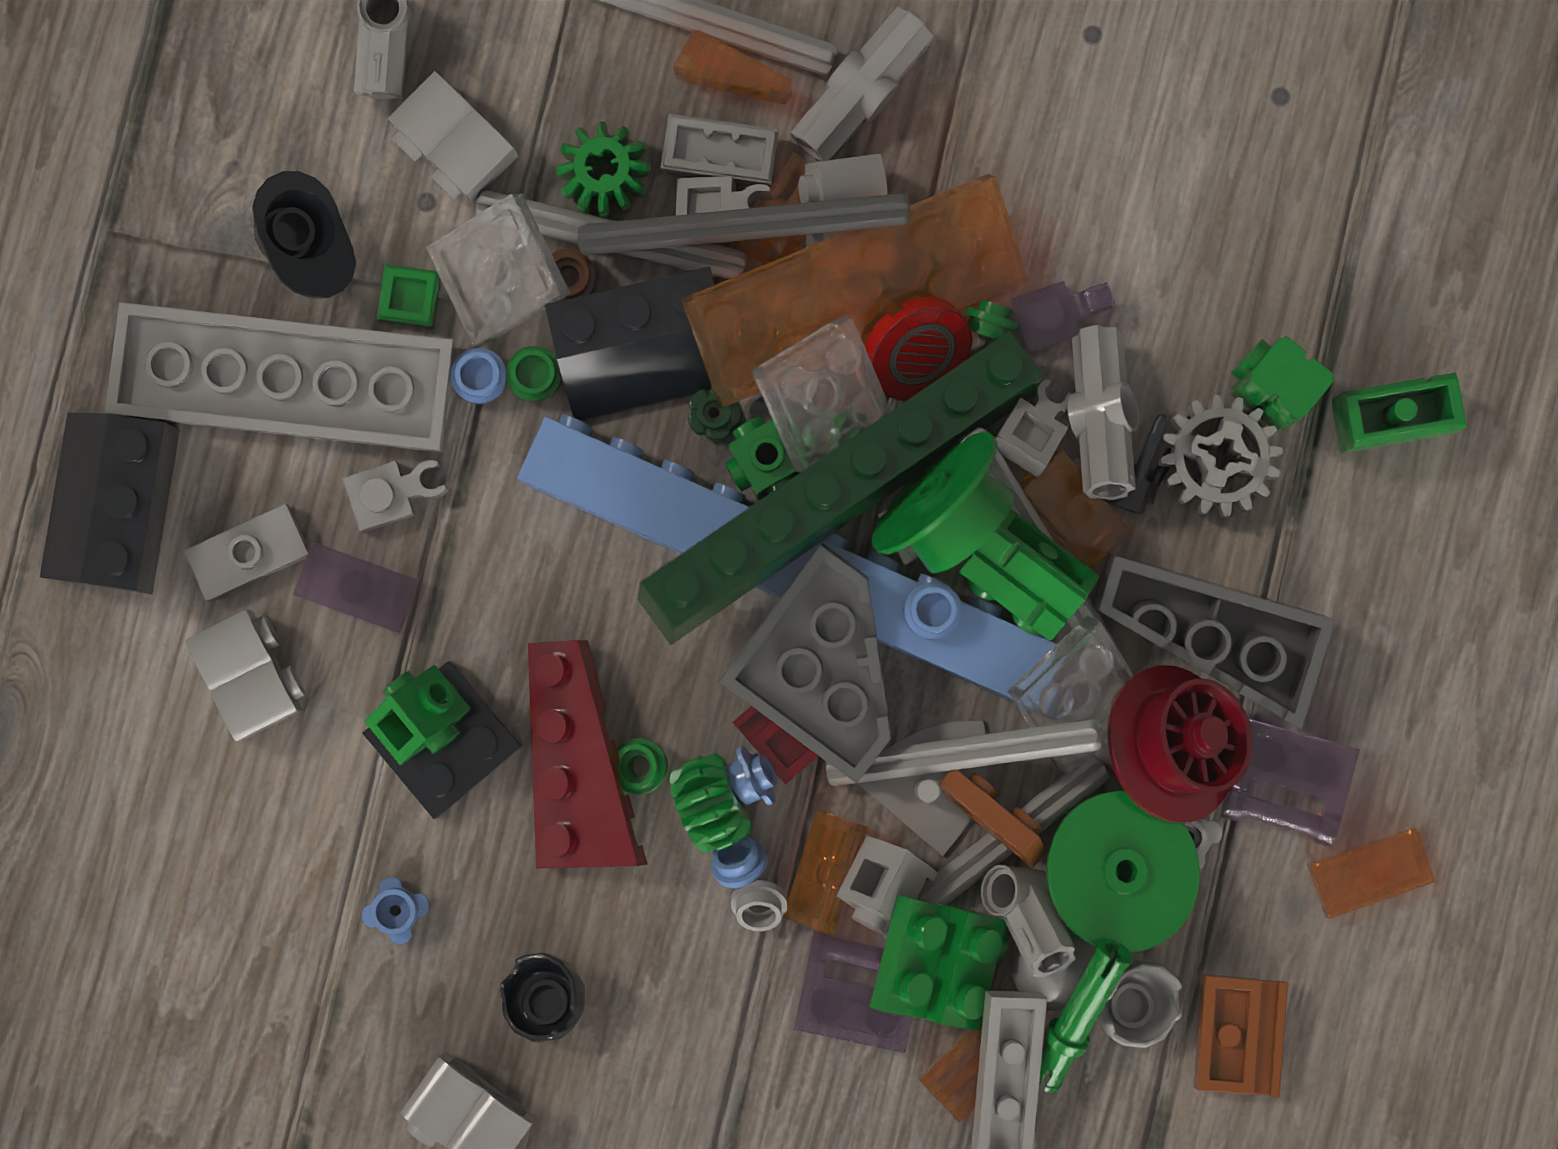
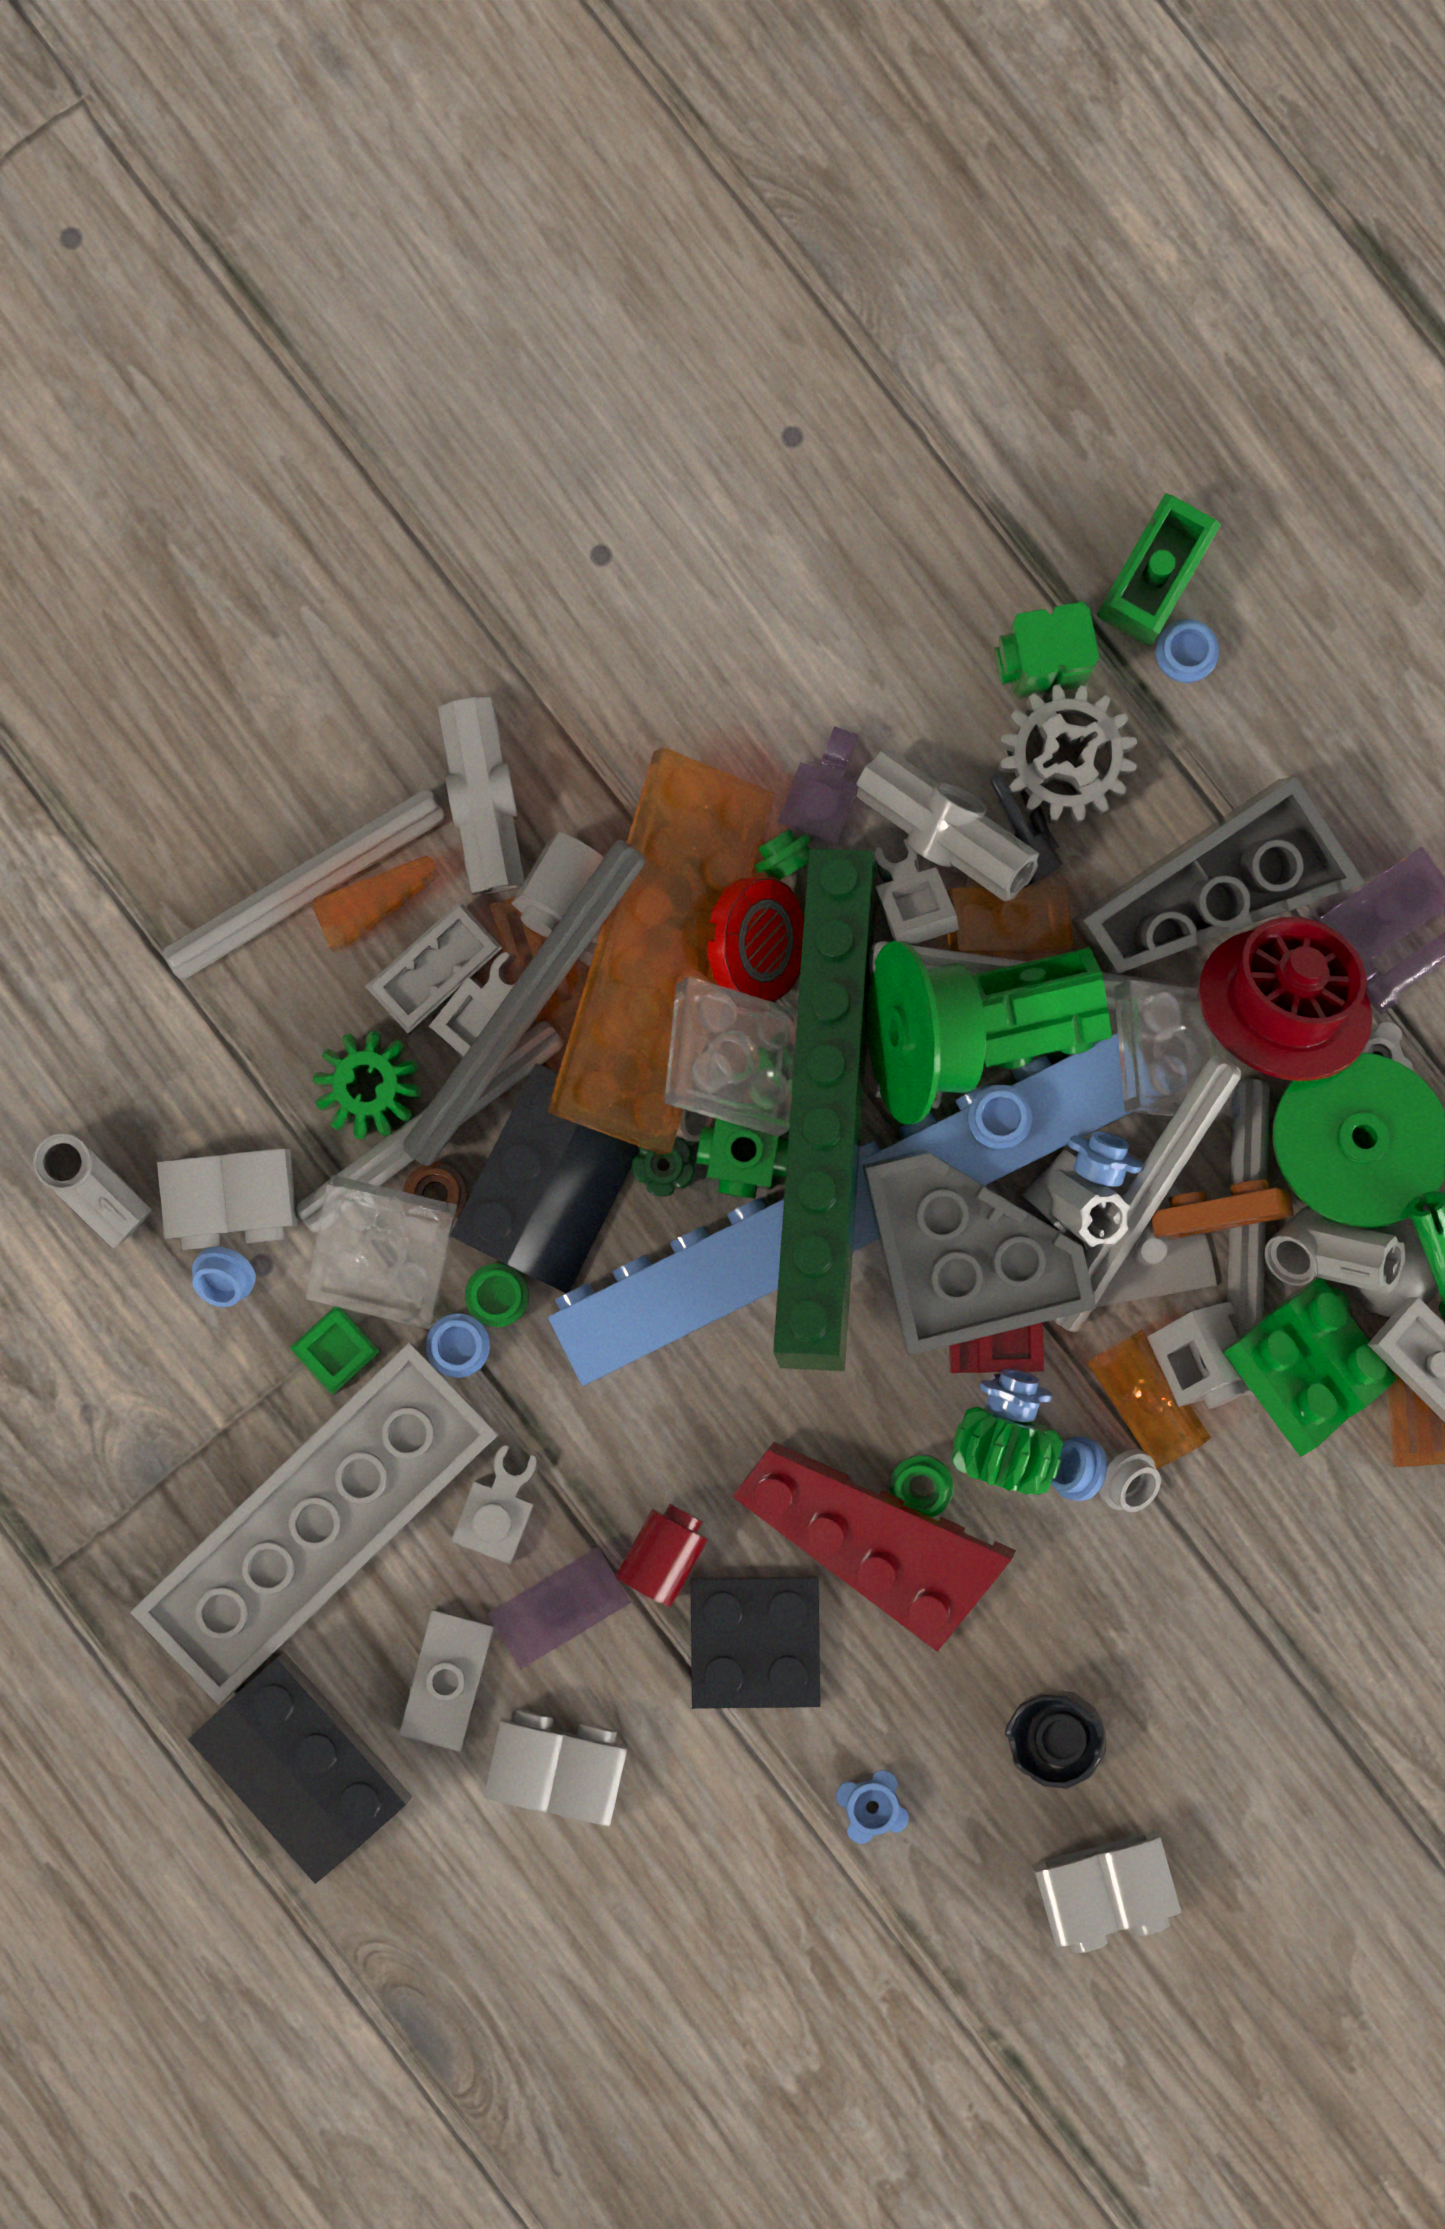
camera: 50 degrees left, 0 degrees up
(303, 235) = (208, 1399): black piece -> none
(395, 179) = (222, 1276): none -> medium blue plate
(417, 714) = (721, 1643): green brick -> none
(449, 628) = (663, 1554): none -> dark red brick
(843, 1007) = (1280, 1479): clear purple plate -> none
(919, 712) = (1077, 1204): none -> light grey piece
(963, 704) = (1103, 1158): none -> medium blue plate
(1358, 480) = (1187, 651): none -> medium blue plate

